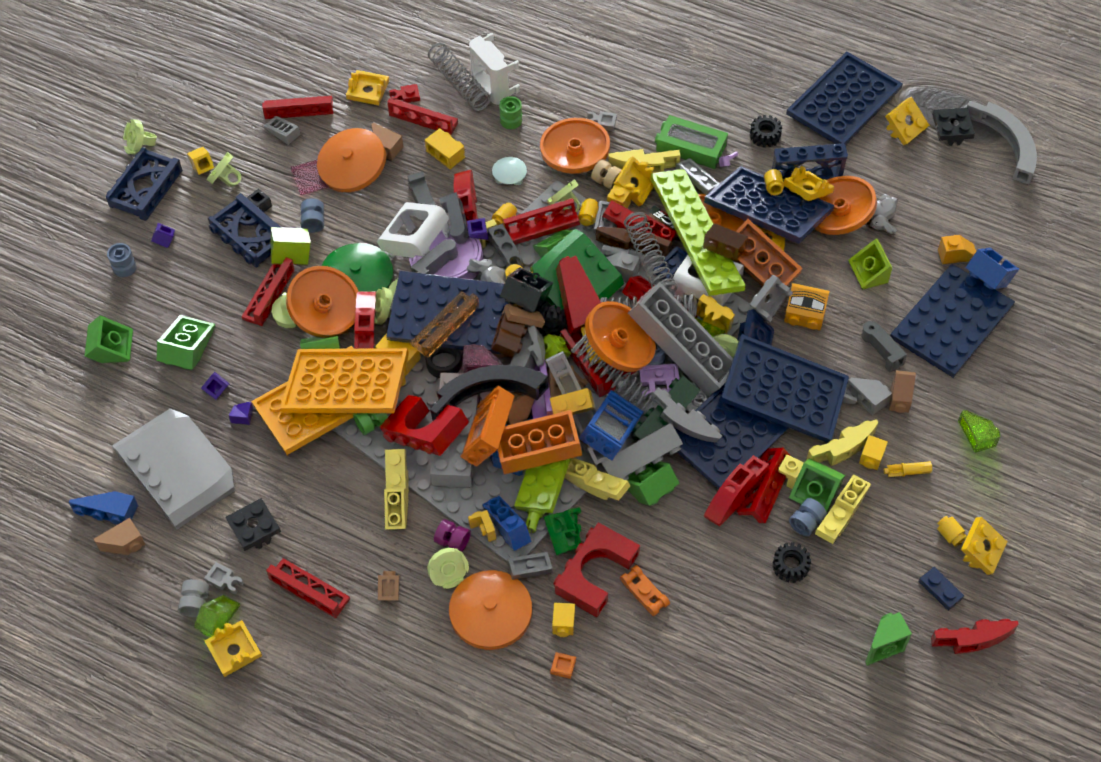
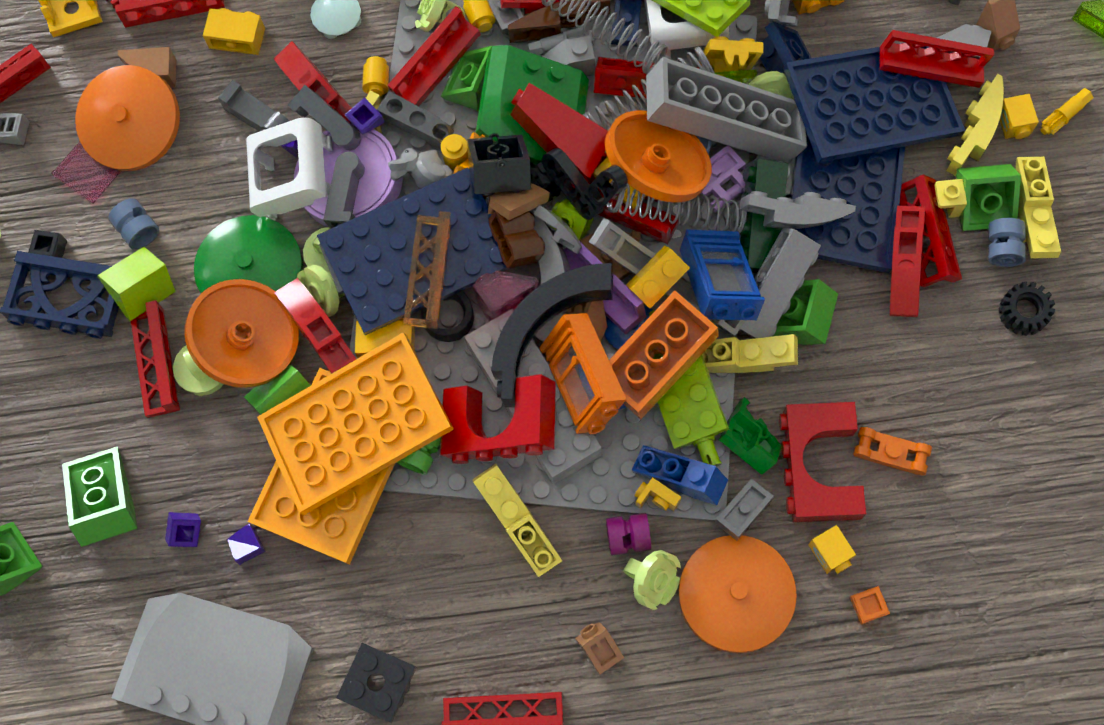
camera: 30 degrees left, 15 degrees up
(566, 334) = (584, 196): none -> black beam
(839, 388) = (932, 61): none -> red fence

